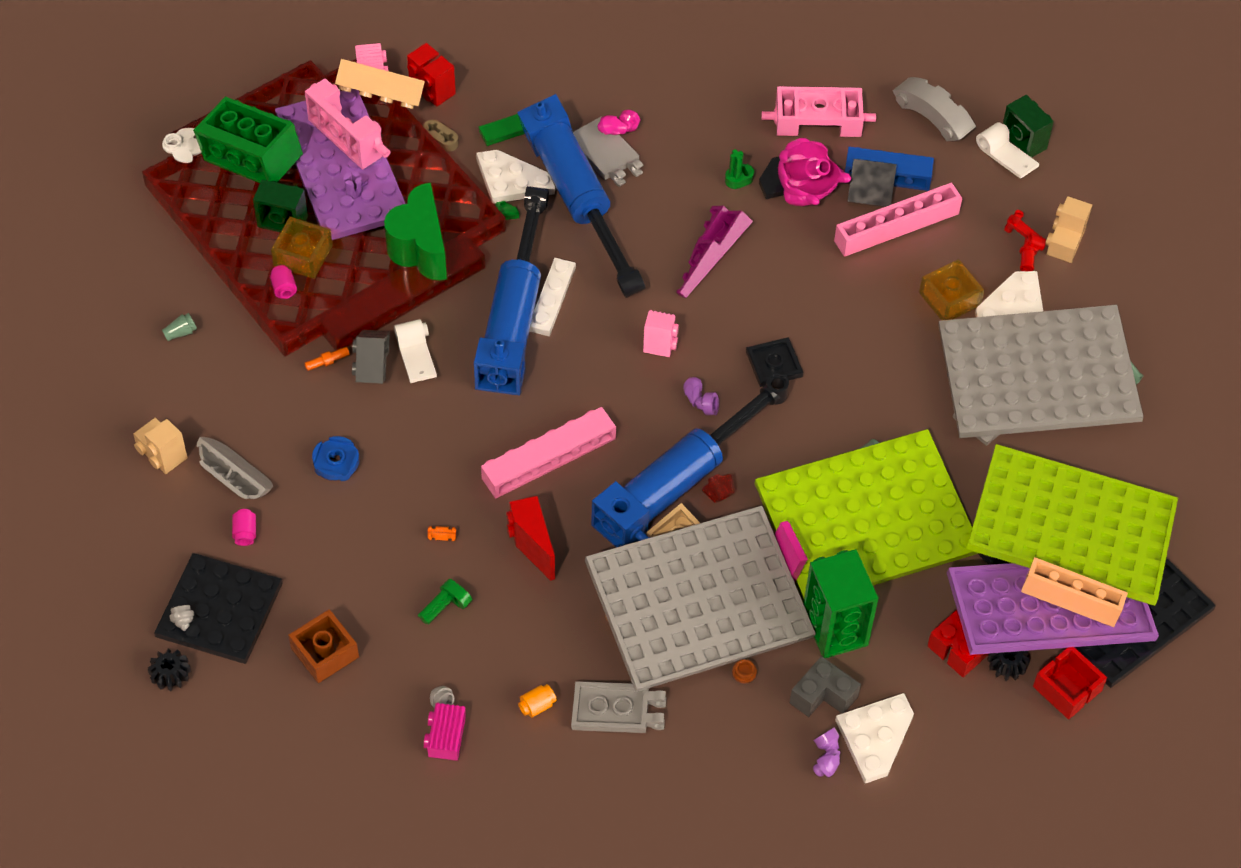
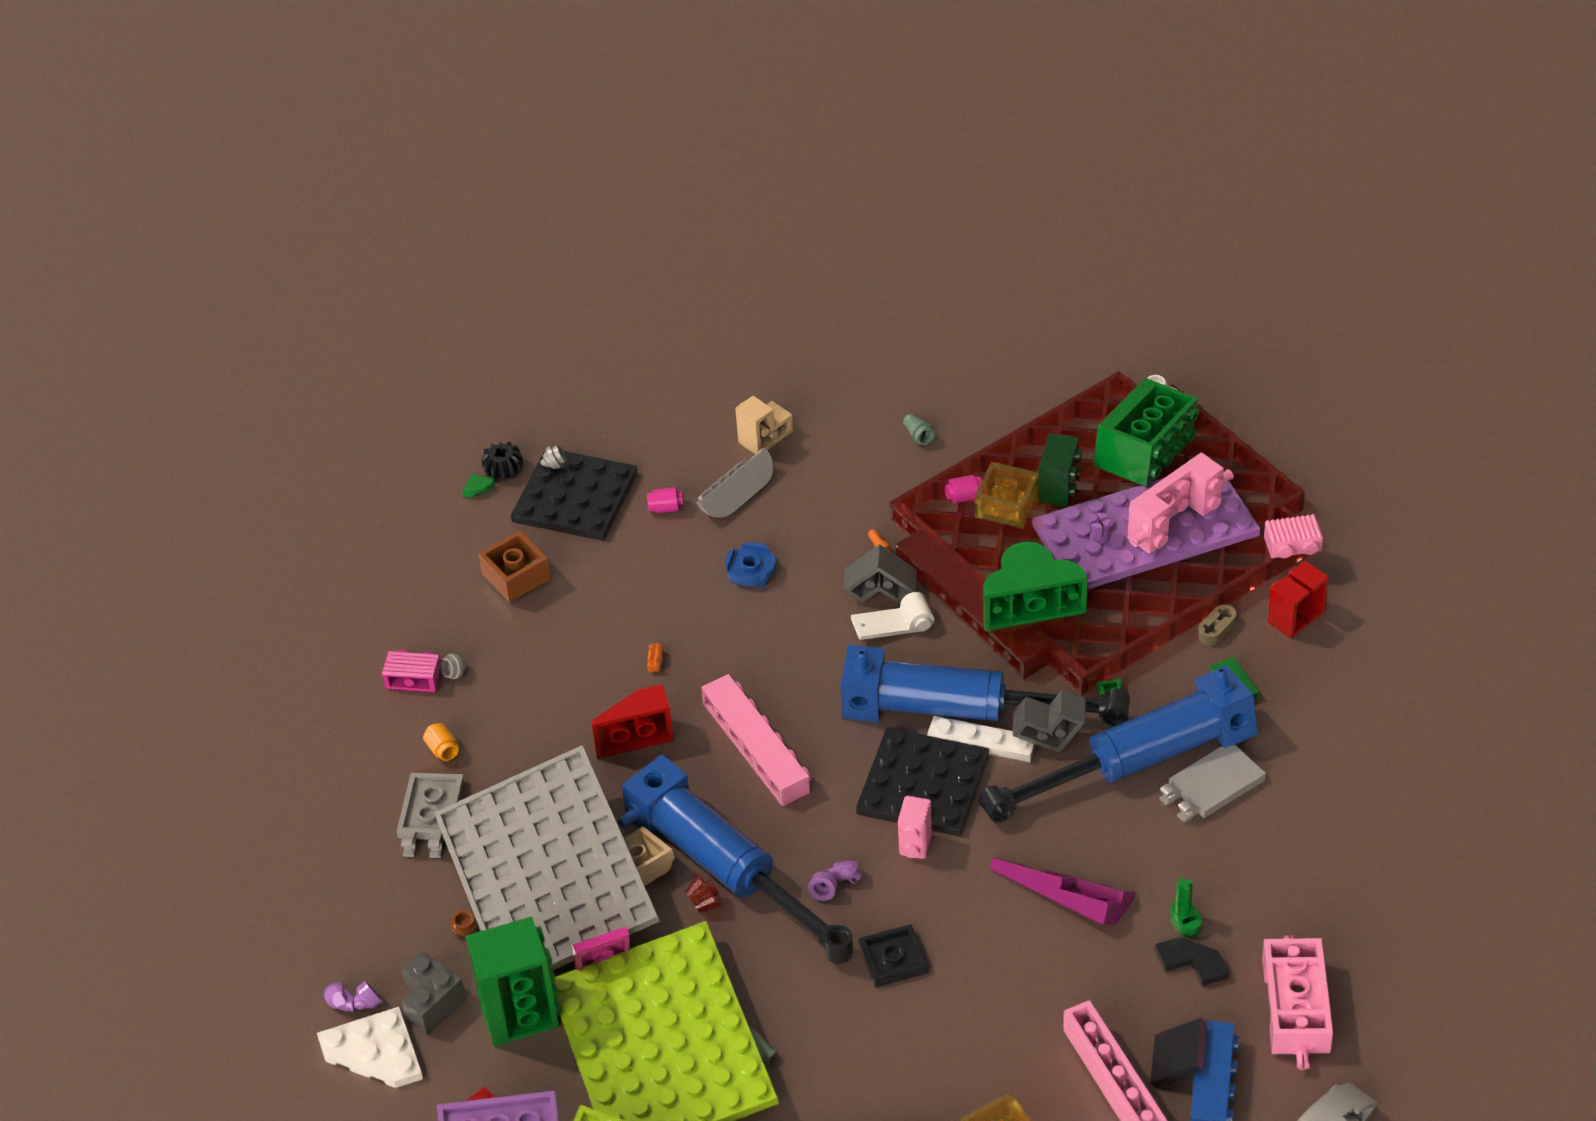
camera: 95 degrees right, 10 degrees down
(195, 694) = (477, 484): none -> green tile
(379, 82) = (1256, 538): tan brick -> none
(449, 593) = (574, 668): green piece -> none
(508, 176) = (1157, 683): white plate -> none
(552, 238) = (1051, 724): none -> dark grey brick
(595, 338) = (923, 769): none -> black plate
(627, 122) = (1241, 775): dark pink arm -> none
(808, 172) = (1180, 975): dark pink piece -> none

